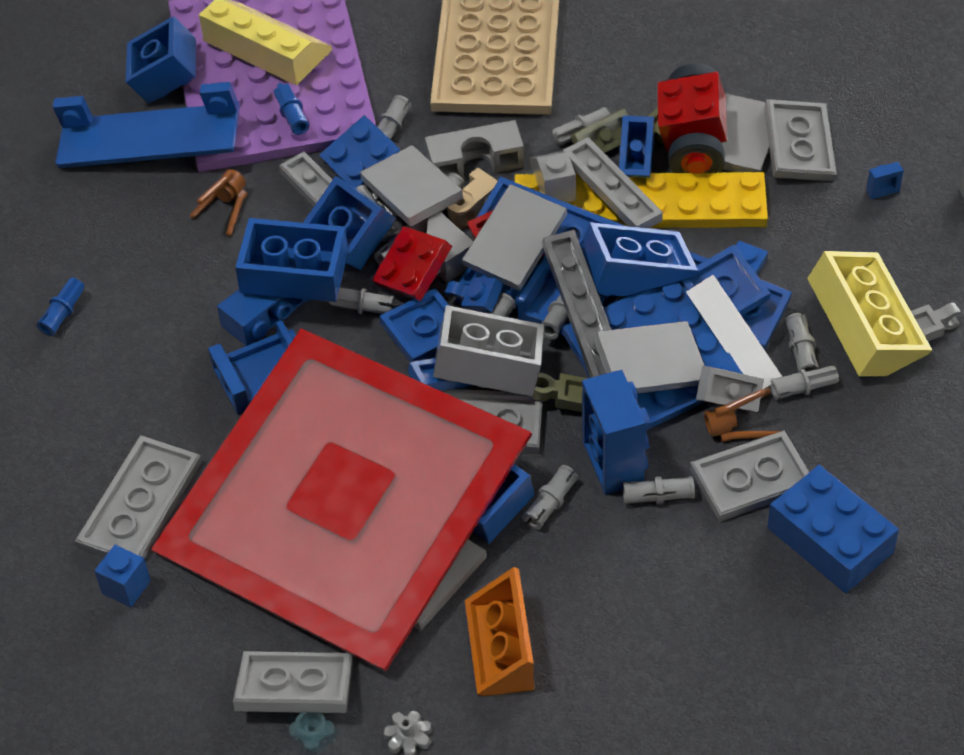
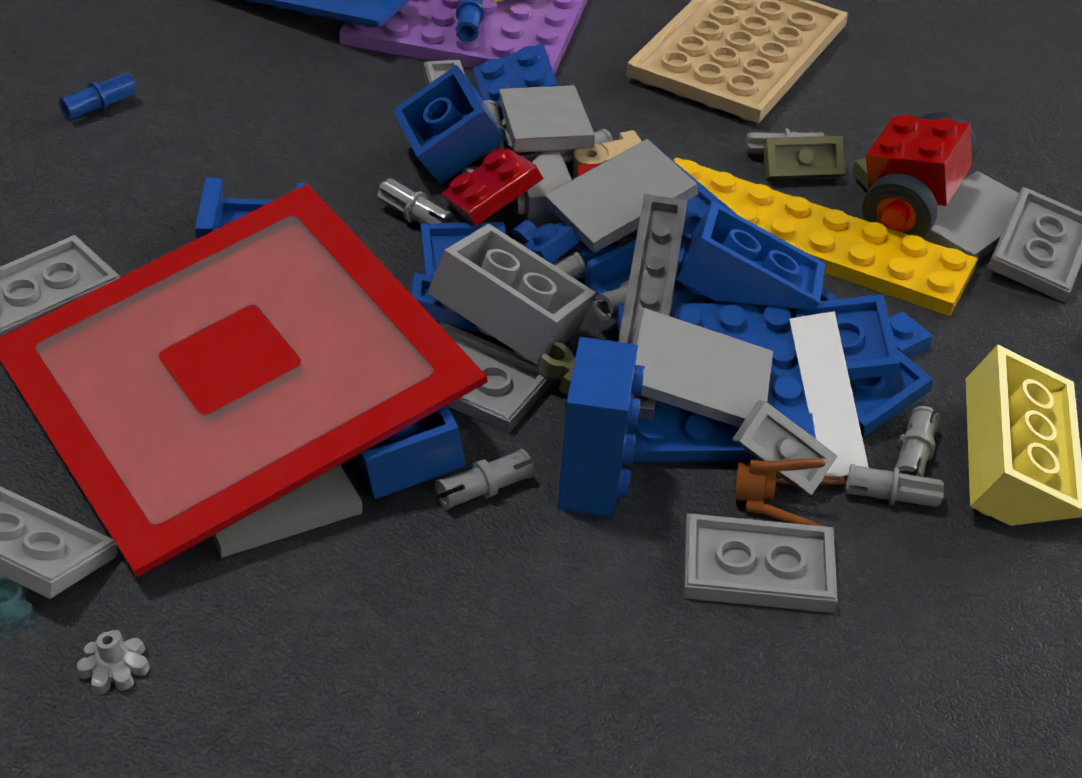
camera: 20 degrees right, 10 degrees down
(227, 188) = (355, 60): dark orange plant -> none
(252, 315) = (327, 168): blue slope -> none
(292, 259) = (352, 123): blue brick -> none
(391, 120) = (574, 66): light grey axle -> none
(494, 142) = (670, 120): light grey arch -> none
(500, 637) = (309, 604): orange slope -> none
(555, 175) = (715, 163): light grey slope -> none
(613, 185) = (778, 195): light grey plate -> none
(637, 146) = (834, 172): blue slope -> none
(658, 490) = (624, 527): light grey pin -> none
(832, 528) = (825, 663): blue brick -> none

